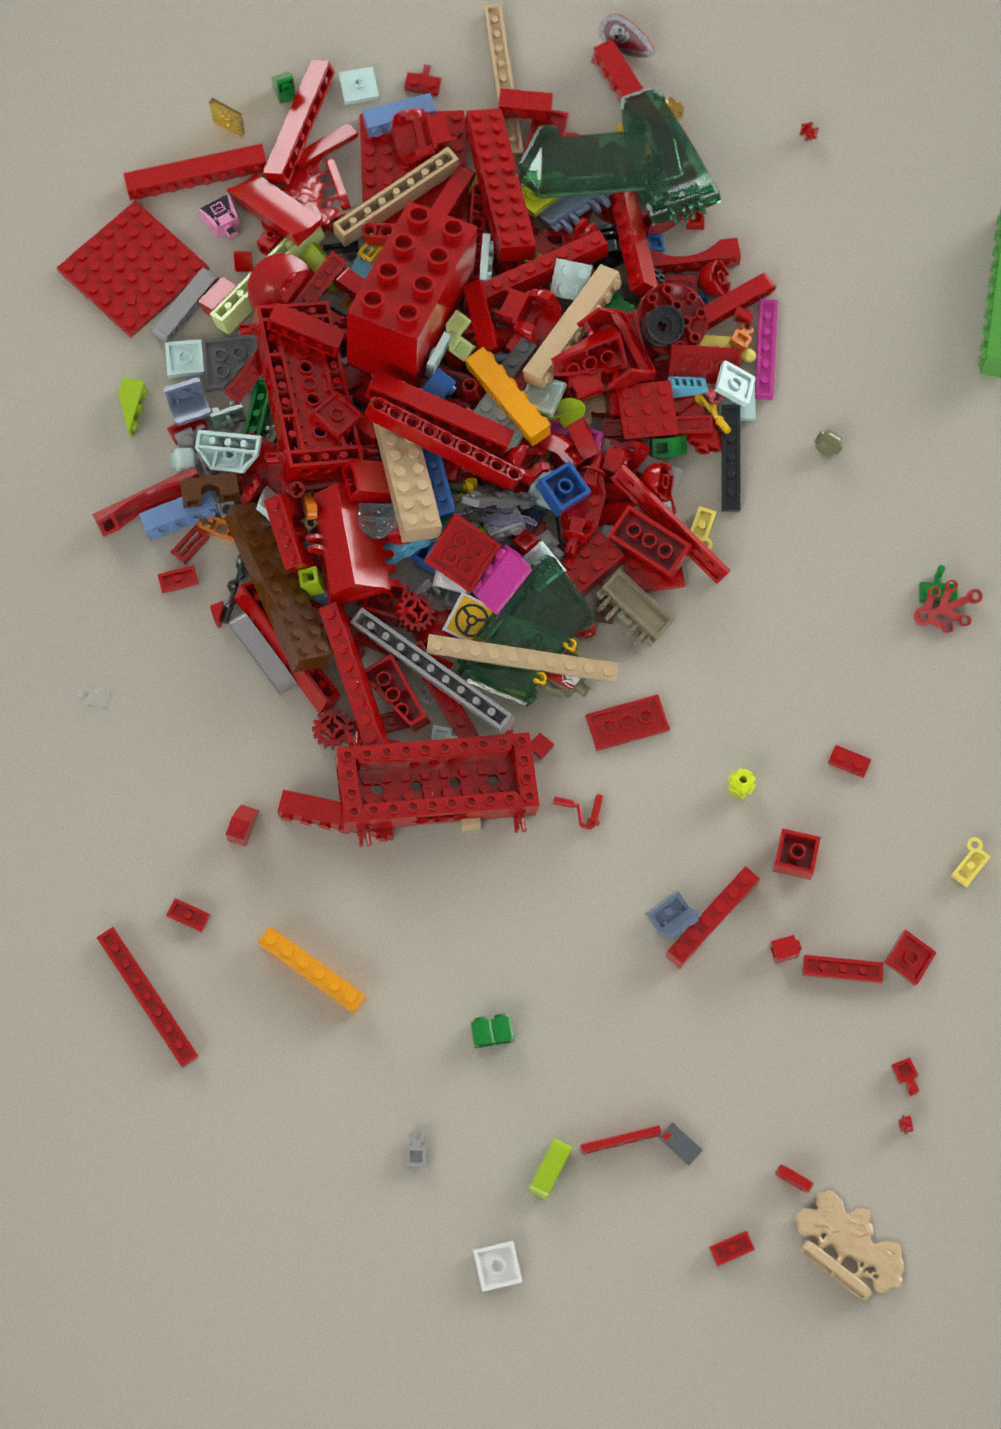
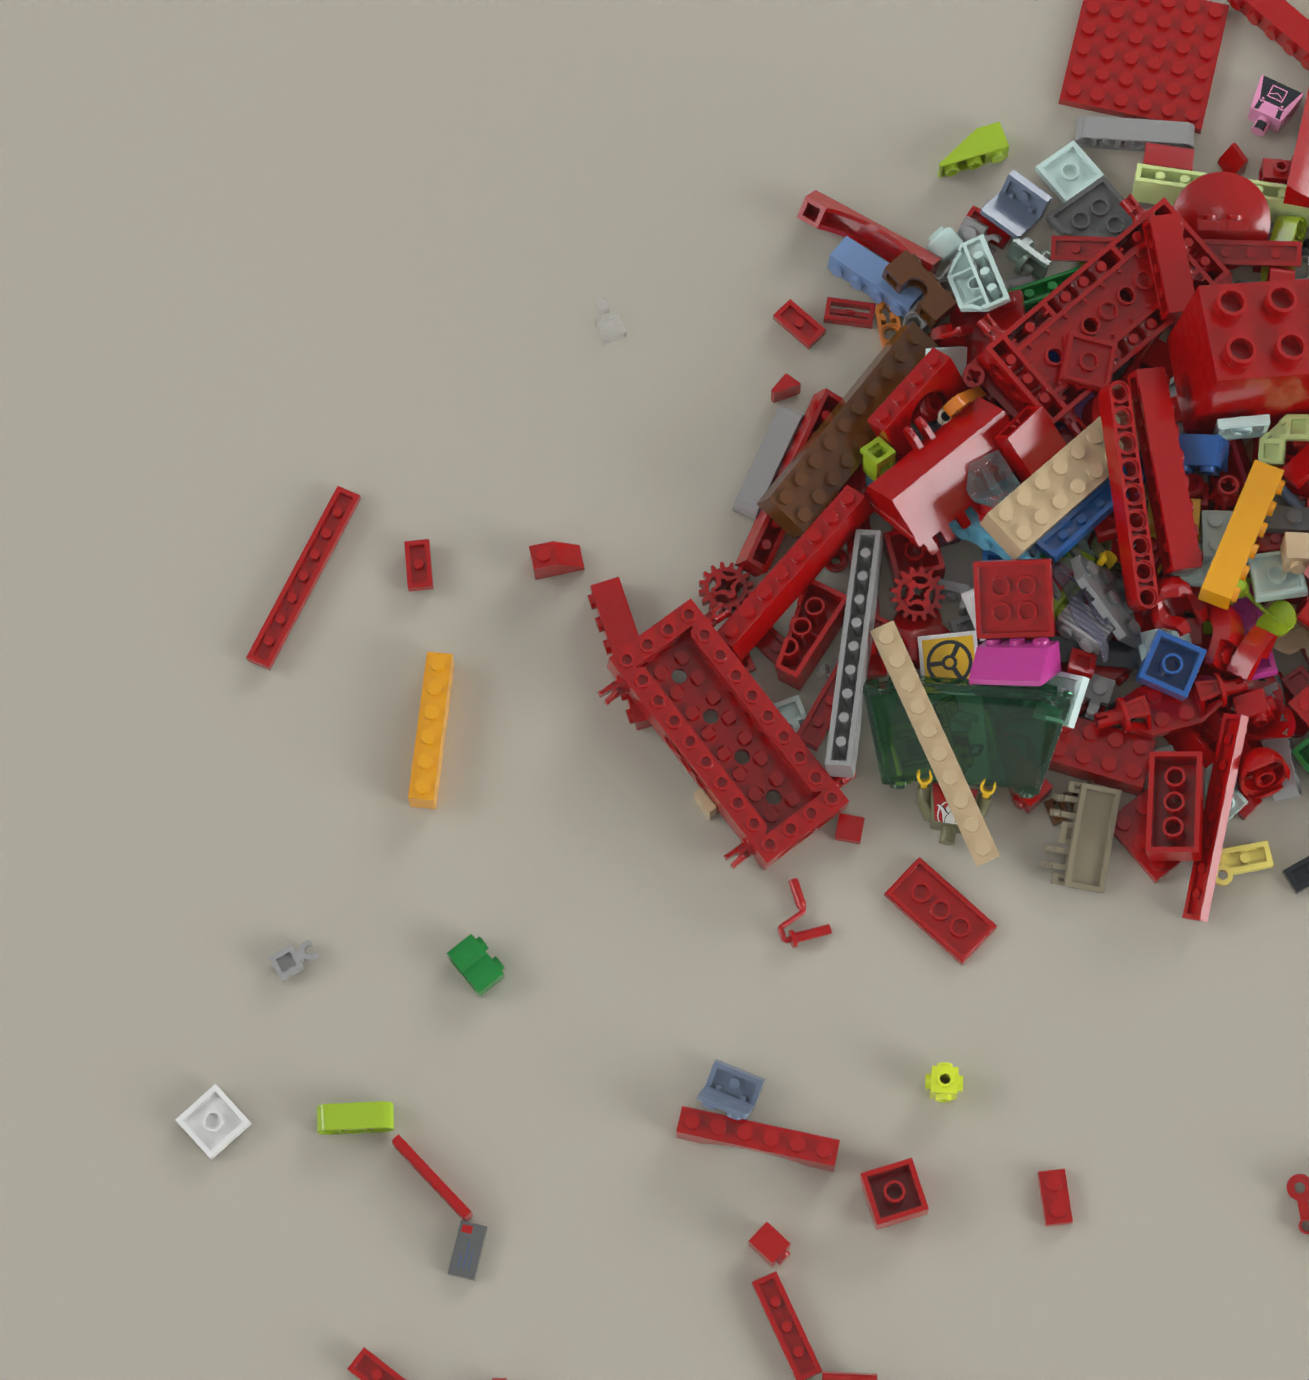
camera: 65 degrees right, 0 degrees up
(232, 587) = (828, 383): pearl dark grey piece -> none

